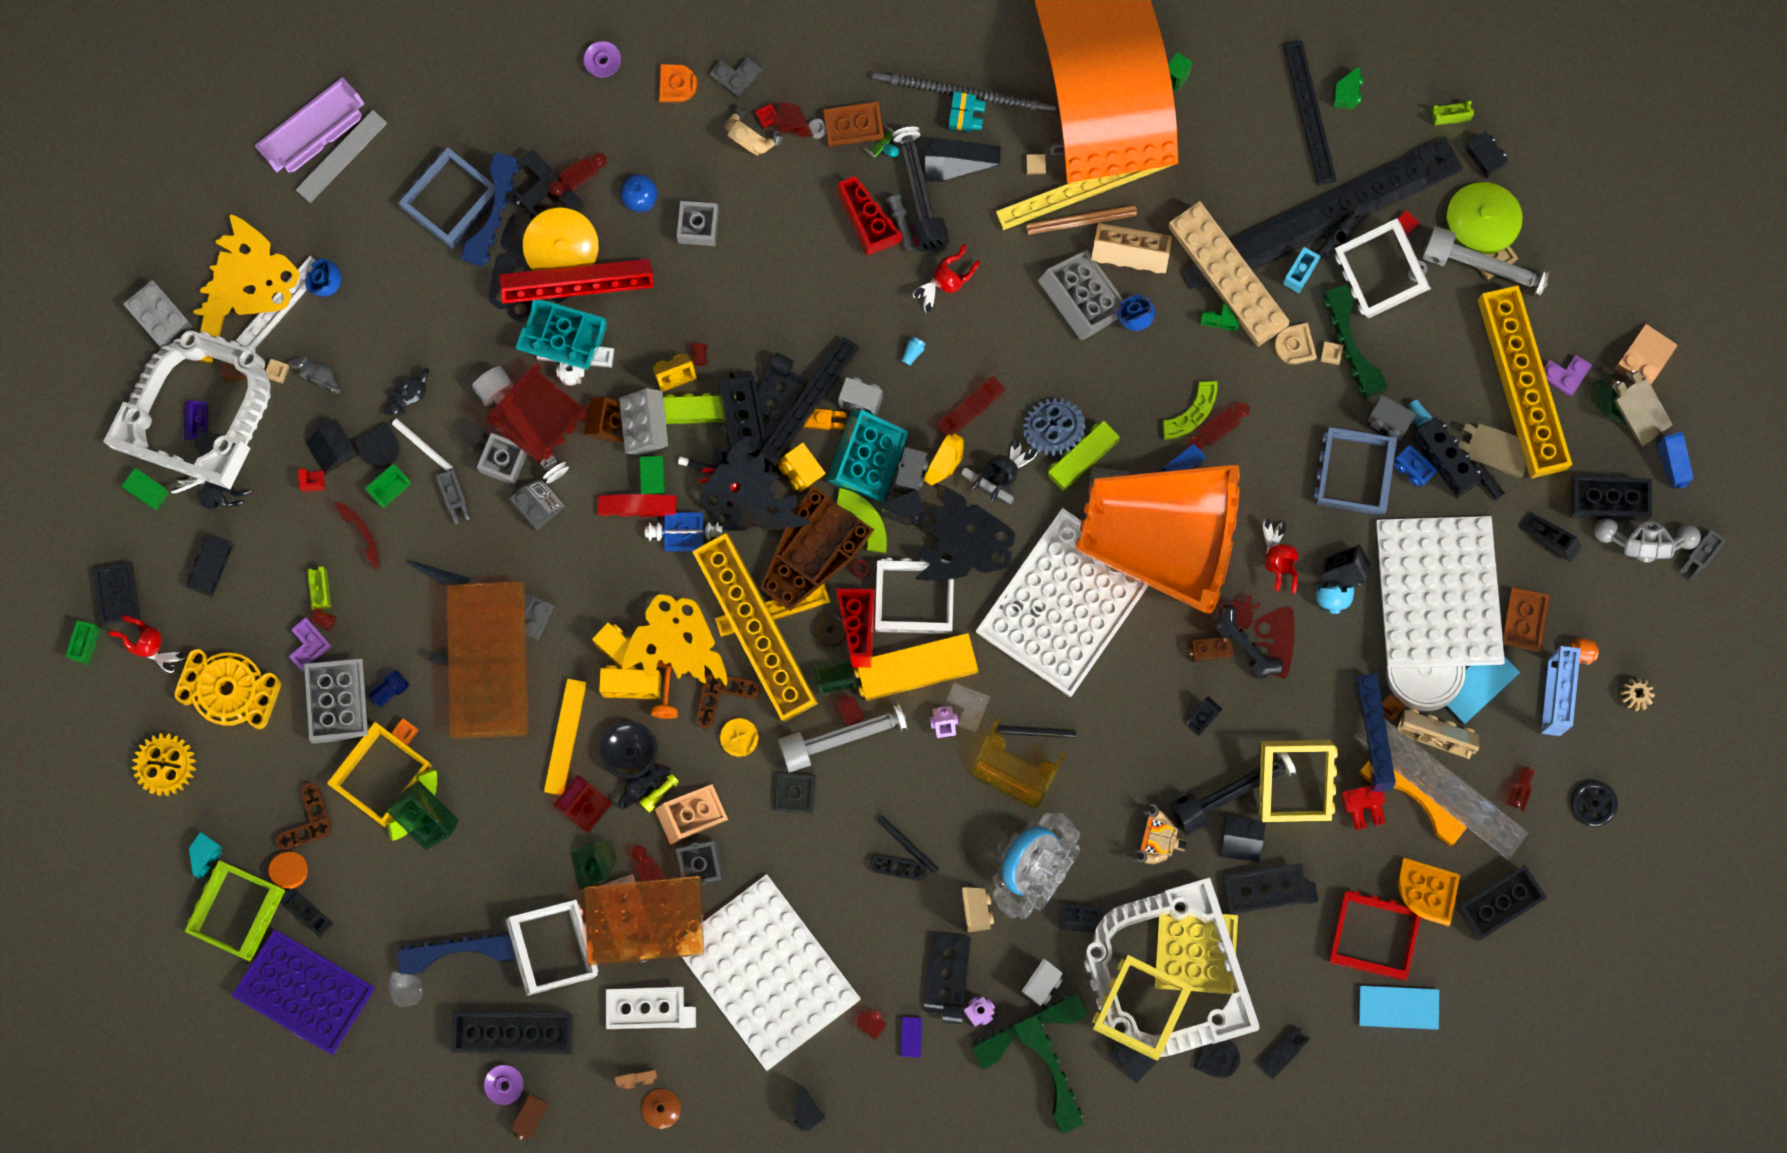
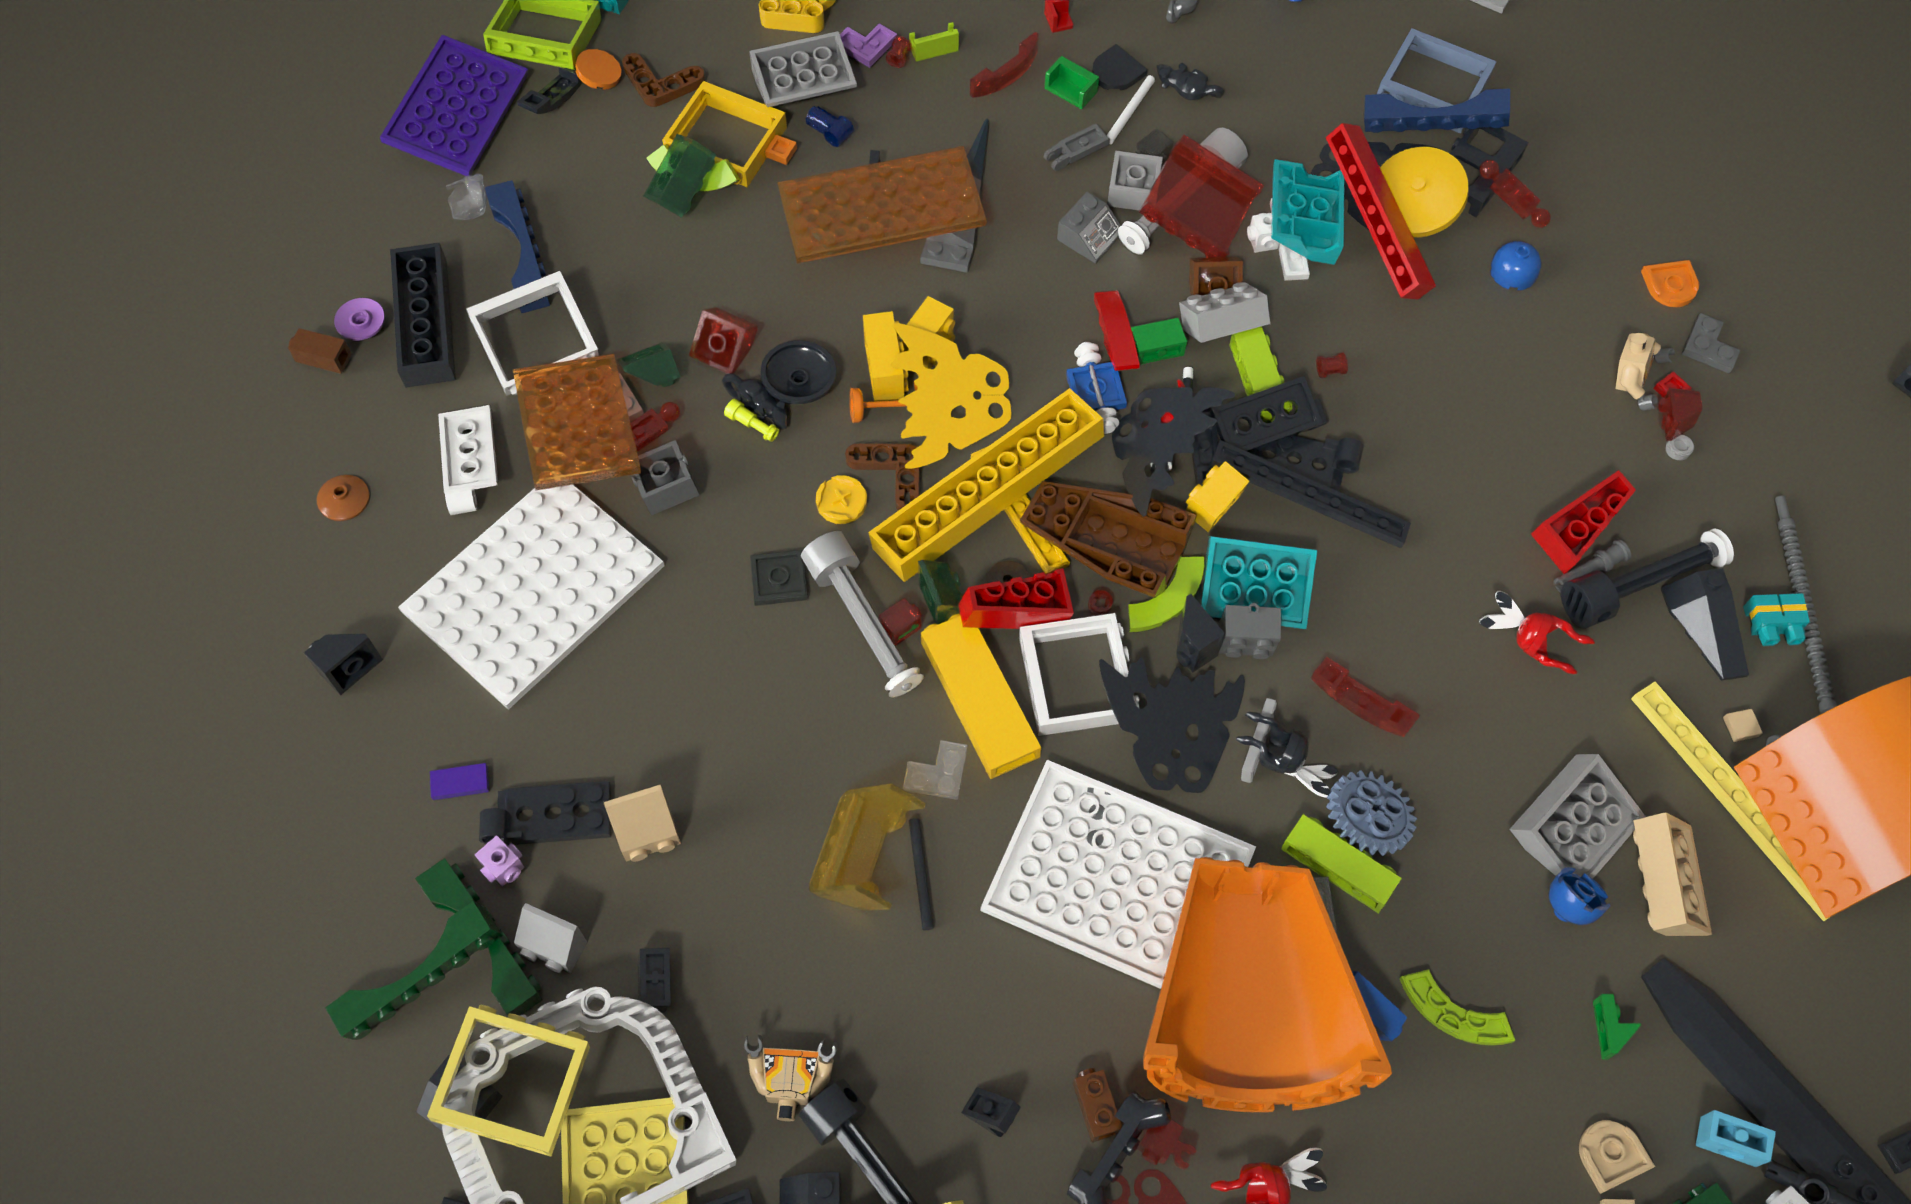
camera: 75 degrees right, 15 degrees down
(331, 446) = (1106, 25): black slope -> none
(565, 737) = (804, 309): yellow tile -> none
(600, 51) = (1669, 197): medium lavender dish -> none
(629, 1081) = (372, 450): medium nougat plate -> none
(674, 372) = (1297, 335): yellow slope -> none
(691, 814) = (729, 460): light nougat slope -> none
(697, 223) = (1501, 329): light grey brick -> none
(822, 420) = (1290, 521): light orange hinge -> none
(853, 124) = (1704, 486): dark orange plate -> none
(861, 396) = (1335, 553): light grey brick -> none
(871, 1023) = (471, 724): clear red brick -> none
(882, 871) = (686, 731): black beam -> none
(884, 145) = (1687, 533): piece -> none
(908, 844) = (730, 730): black bar -> none
(913, 350) = (1421, 612): medium azure cone -> none
(944, 721) = (908, 740): lavender brick -> none
(946, 459) = (1282, 673): yellow connector -> none
(1034, 864) = (720, 893): clear piece -> none
(1083, 219) = (1687, 802): medium nougat axle -> none
(1220, 426) = (1447, 1058): clear red plate -> none
(1228, 274) = (1686, 1025): tan brick -> none

